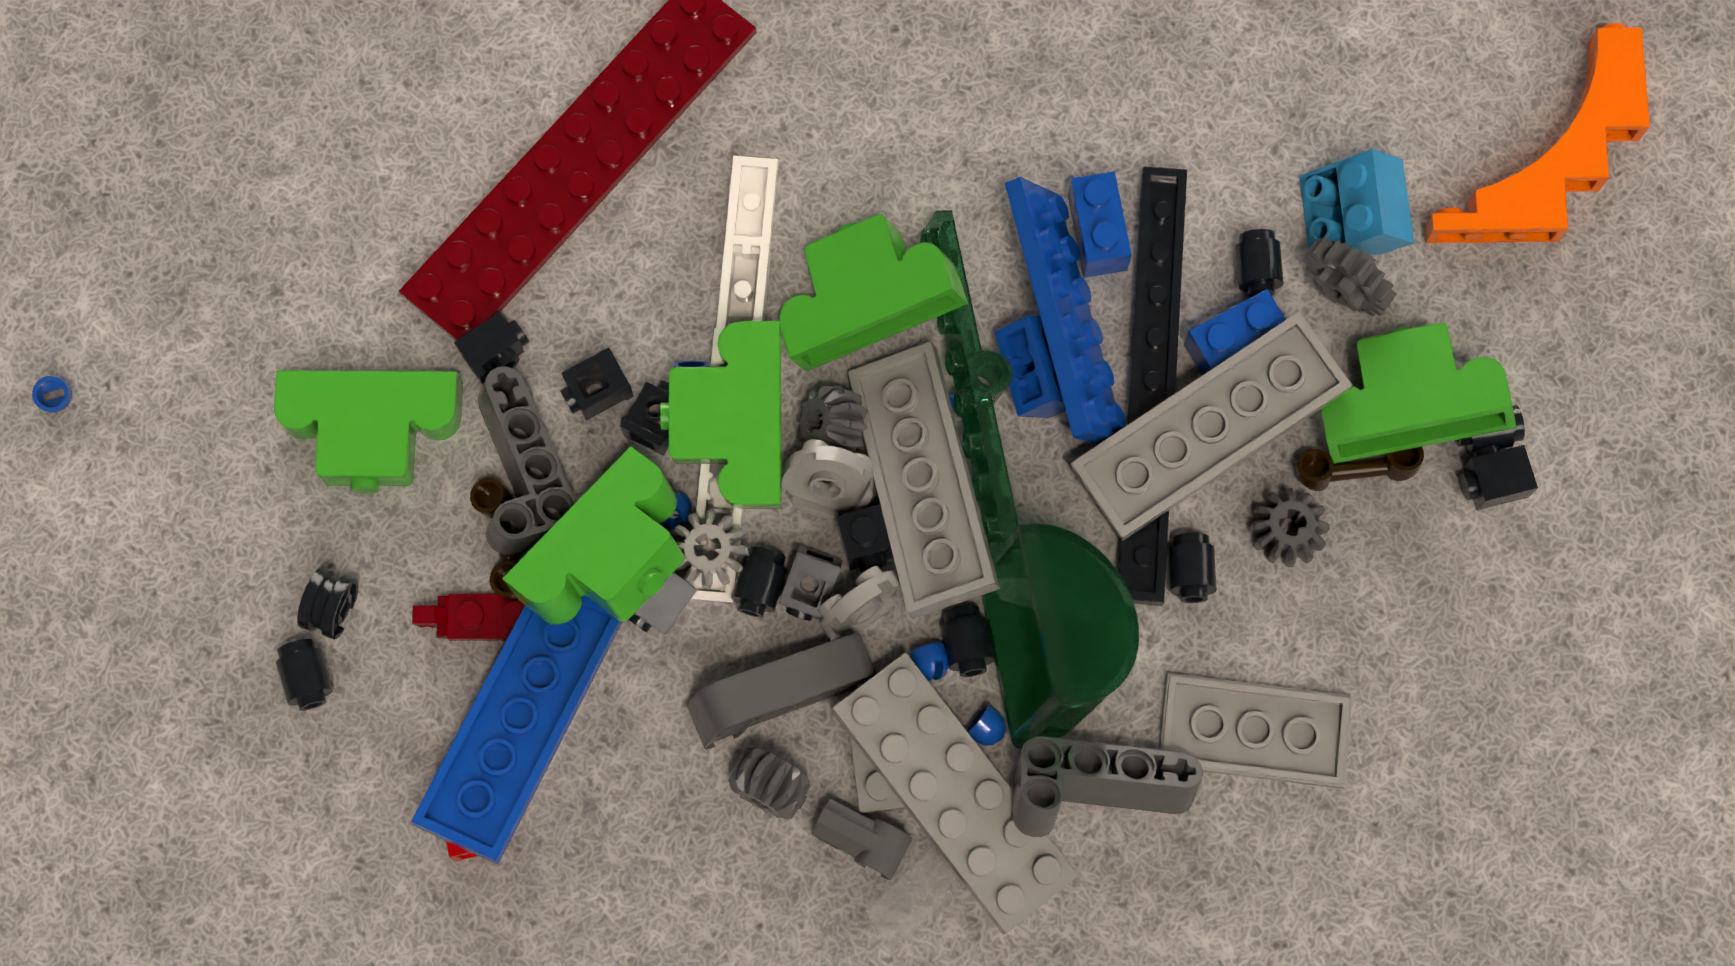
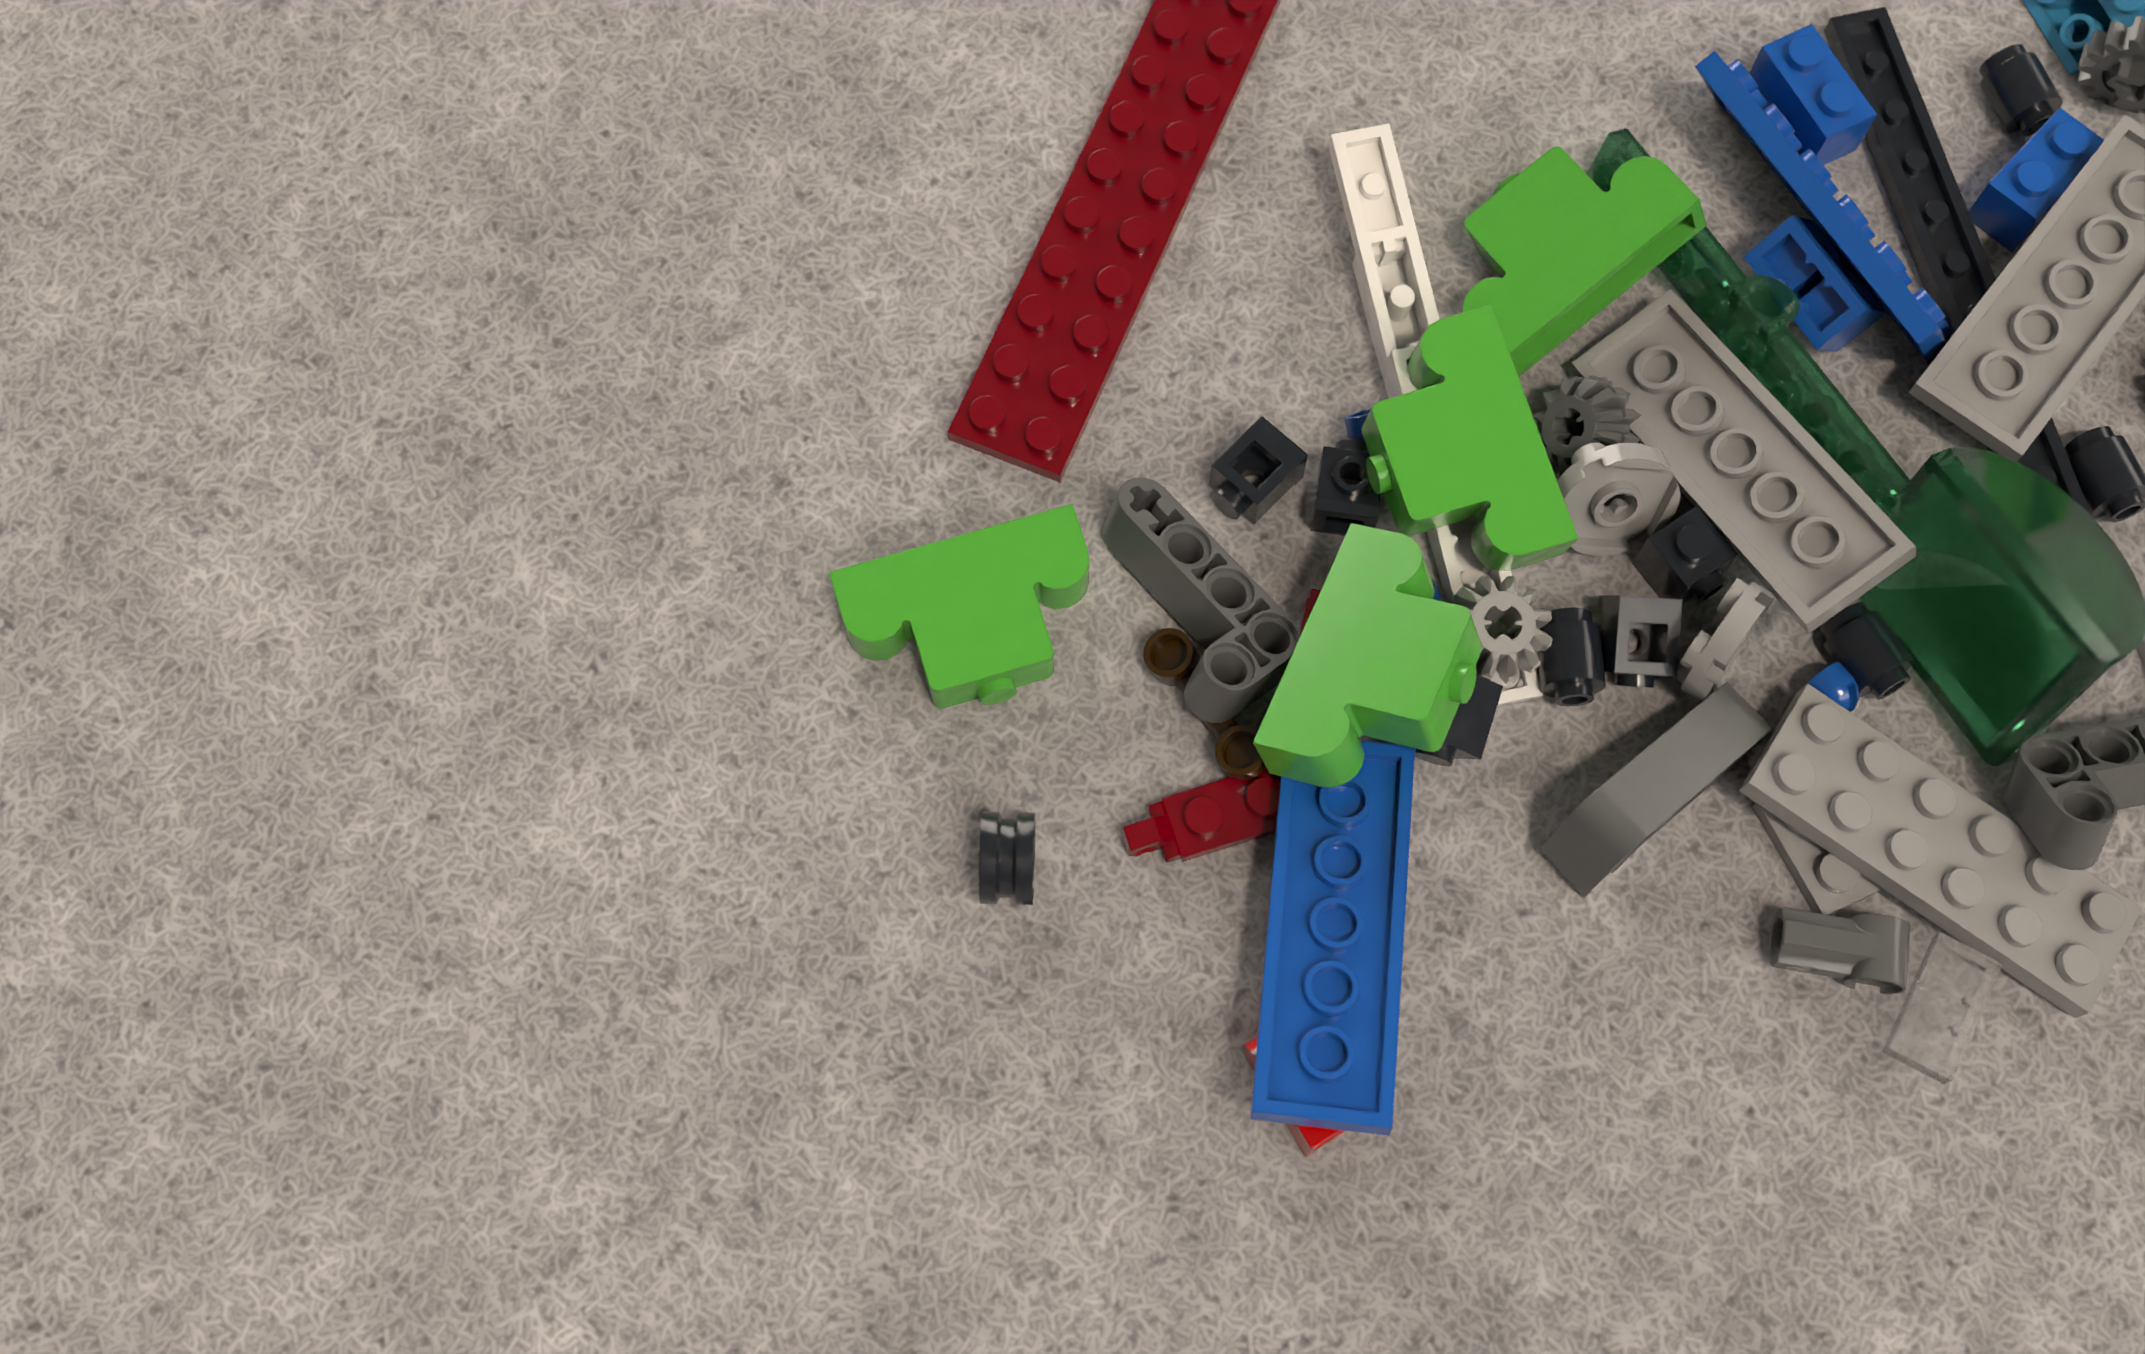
camera: 20 degrees left, 5 degrees down
(47, 385) = (515, 687): blue hinge -> none
(303, 674) = (1006, 965): black brick -> none
(492, 346) = (1099, 465): black brick -> none
(769, 782) = (1699, 910): dark grey gear -> none
(987, 727) = (1943, 747): blue hinge -> none

